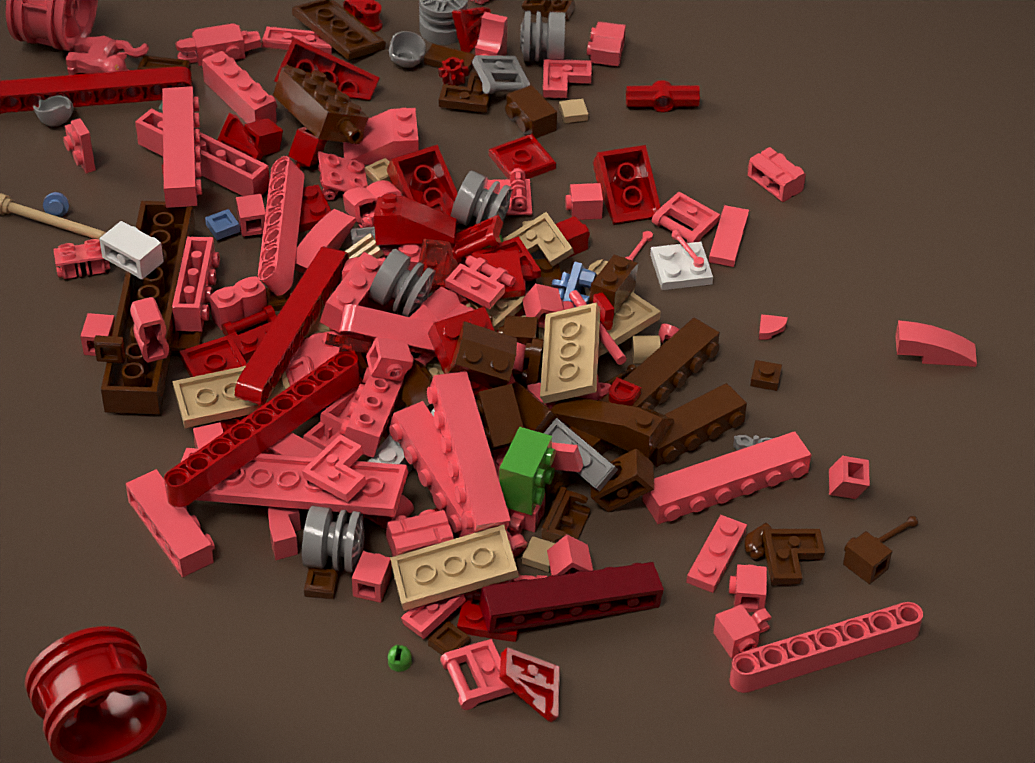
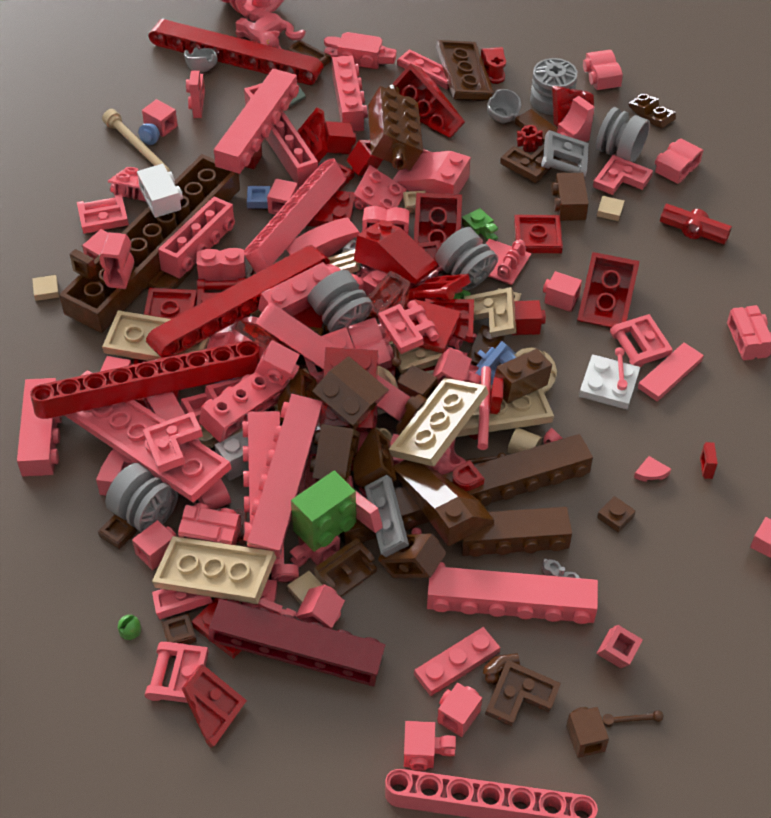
camera: 30 degrees right, 5 degrees up
(55, 180) = (160, 115): none -> coral brick
(64, 394) = (45, 287): none -> tan tile
(68, 301) = (102, 214): none -> coral plate
(460, 167) = (481, 224): none -> bright green plate
(647, 236) = (598, 343): coral hinge -> none
(815, 297) = (708, 460): none -> red tile

